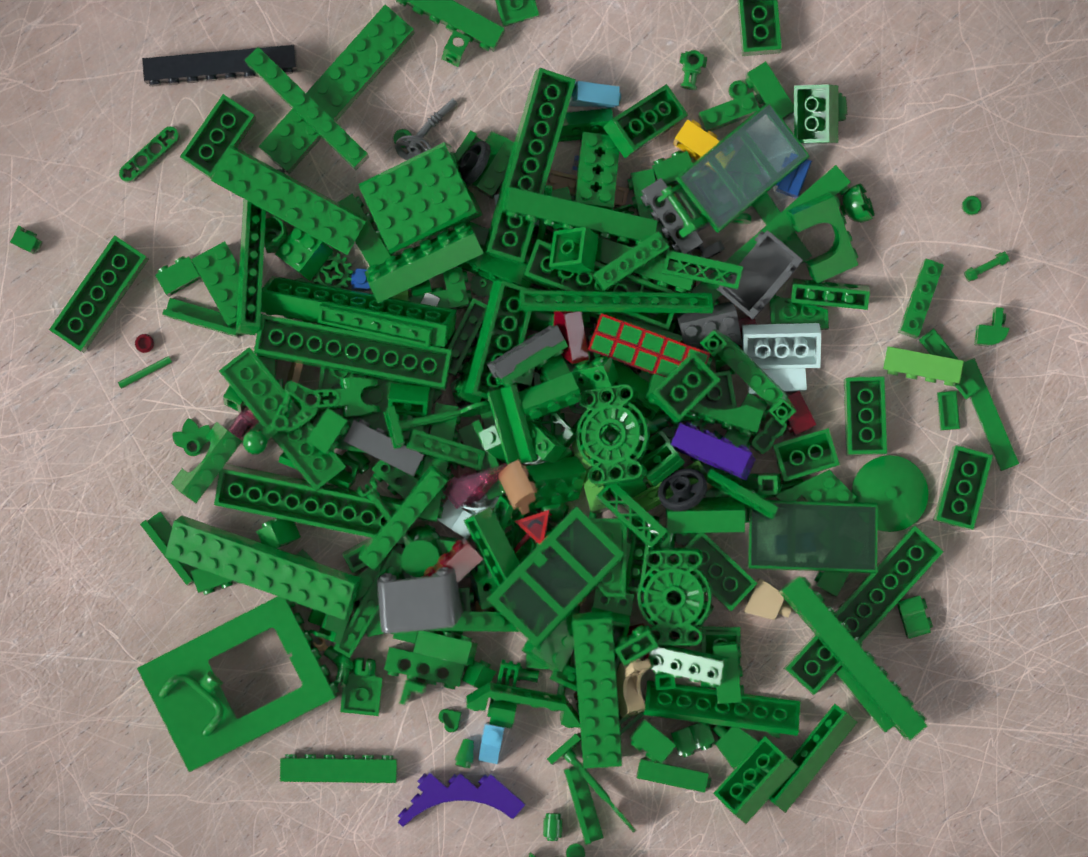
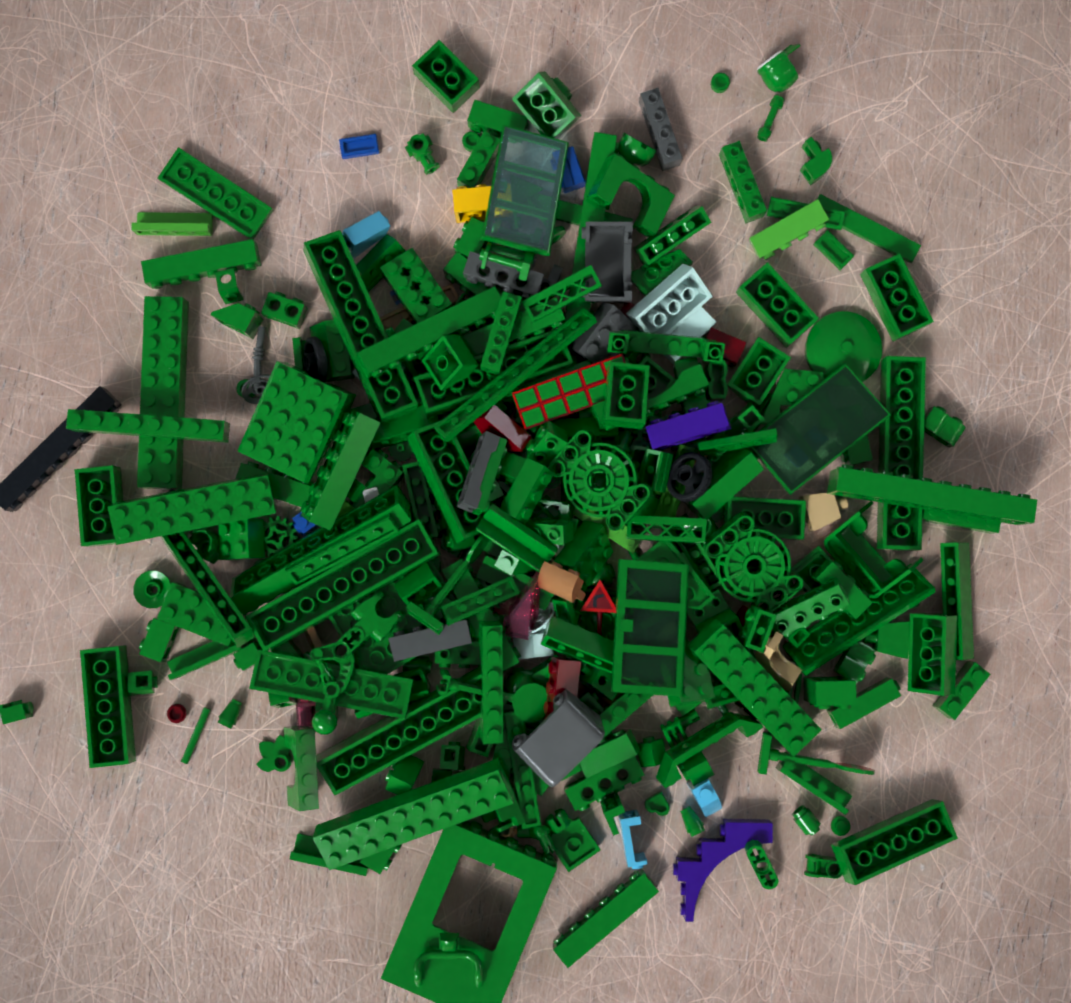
camera: 40 degrees left, 0 degrees up
(141, 293) = (135, 680): none -> green brick
(151, 157) = (63, 564): green beam -> none
(184, 378) = (230, 714): none -> green cone
(198, 226) = (143, 589): none -> green dish
(234, 345) = (247, 656): none -> green brick
(324, 545) = (447, 760): none -> green brick
(328, 431) = (375, 664): green brick -> none
(414, 708) = (628, 819): none -> medium azure panel
(443, 82) = (240, 318): none -> green slope
(479, 104) = (282, 314): none -> green brick
(496, 823) = (762, 857): none -> green beam
(645, 121) = (420, 219): green brick -> none
(647, 21) = (359, 146): none -> blue tile
(755, 829) = (967, 683): none -> green brick
(764, 663) = (862, 560): none -> green windscreen
(891, 204) = (660, 129): none -> dark grey brick
(1020, 234) = (778, 70): none -> green piece

